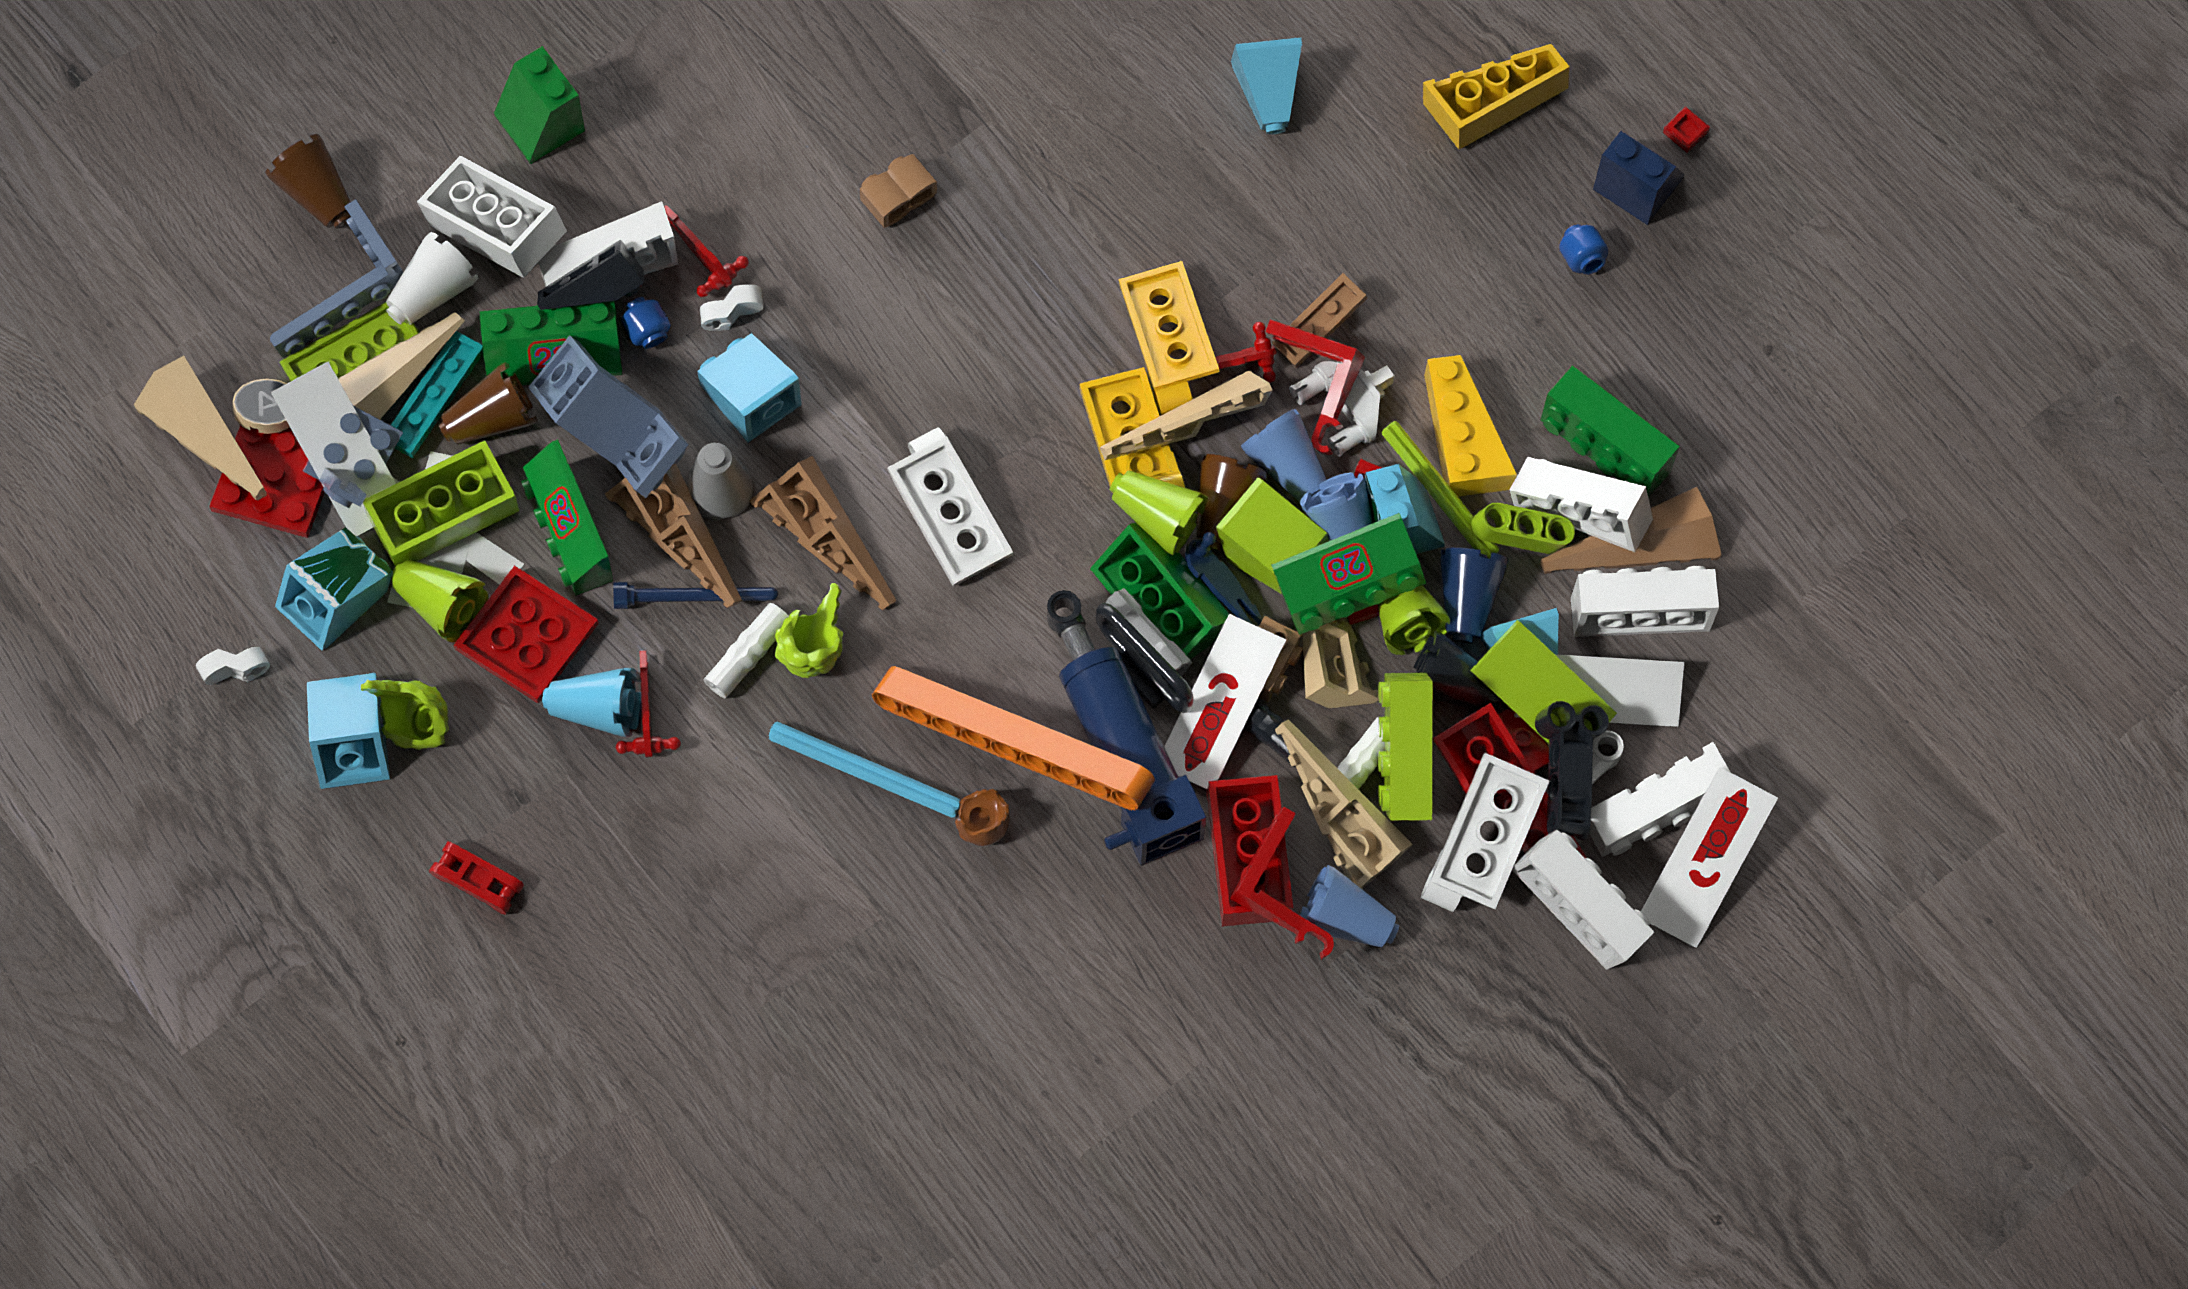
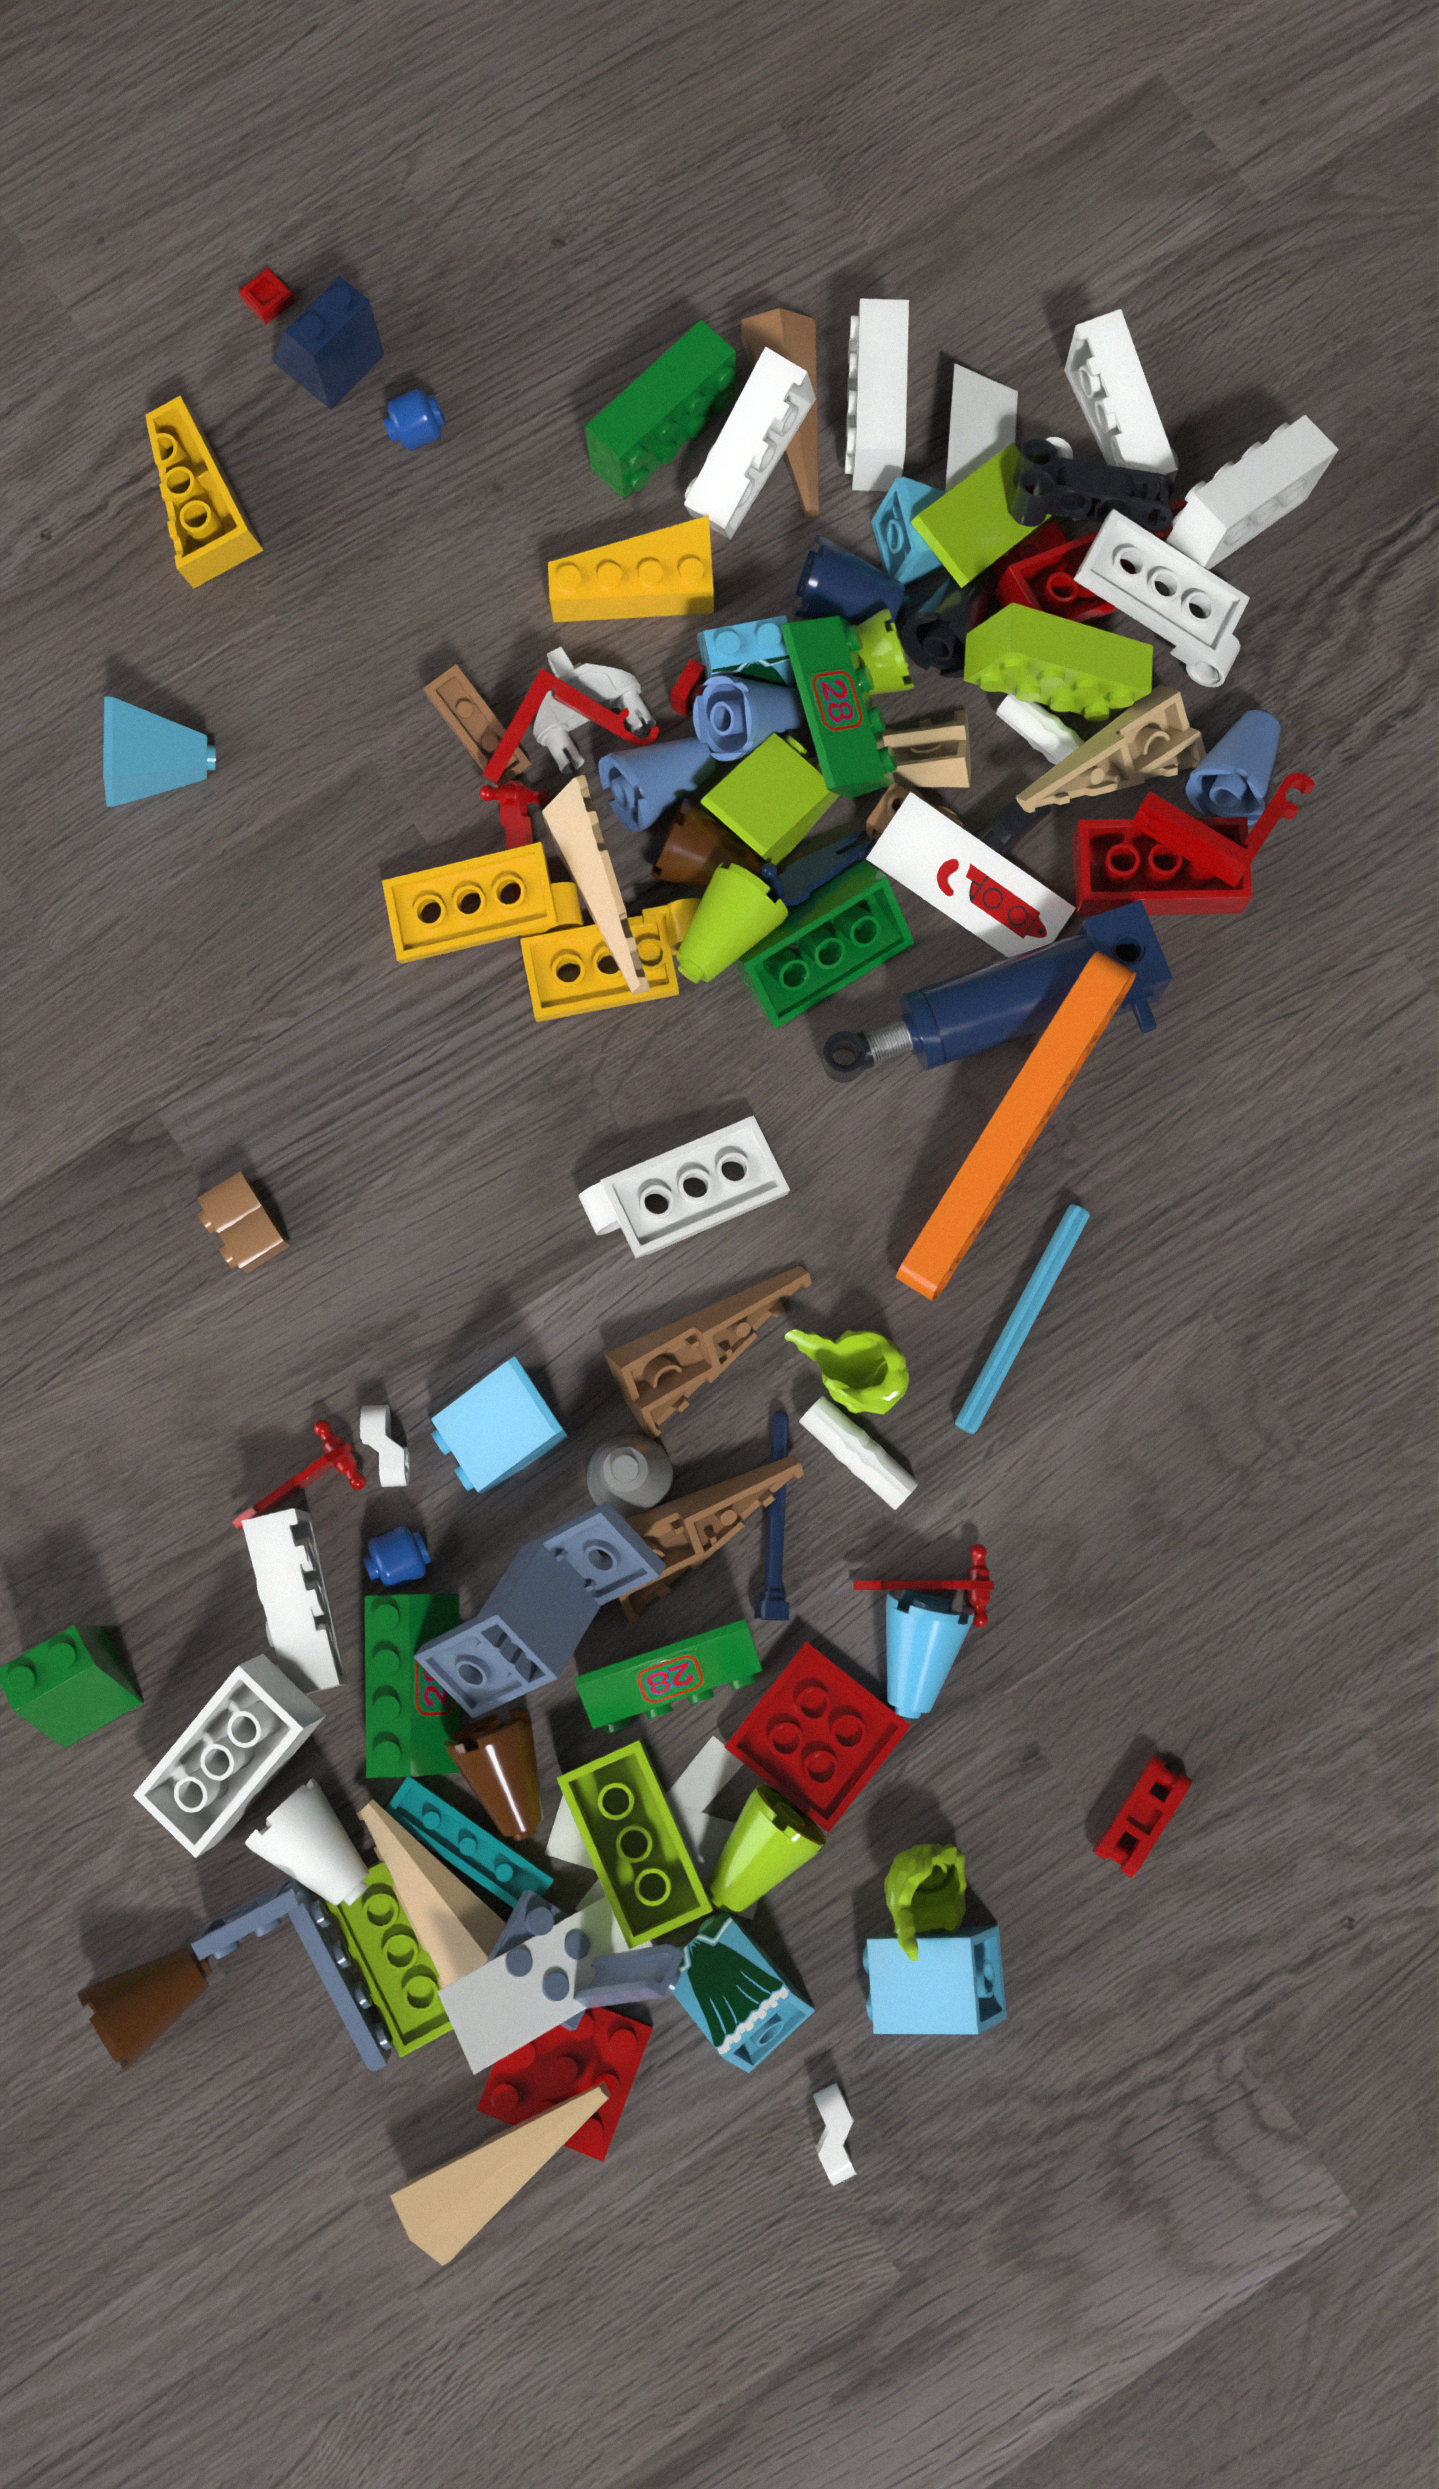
camera: 80 degrees left, 10 degrees up
(257, 407) = (458, 2093): tile -> none
(597, 280) = (343, 1619): black slope -> none
(983, 817) = (1100, 1175): dark orange hair -> none
(1134, 614) = (901, 946): light grey axle -> none
(1147, 668) = (920, 966): black bar -> none
(1435, 485) = (716, 608): lime axle -> none
(1508, 531) = (773, 520): lime beam -> none
(1708, 857) = (1196, 360): white sticker -> none

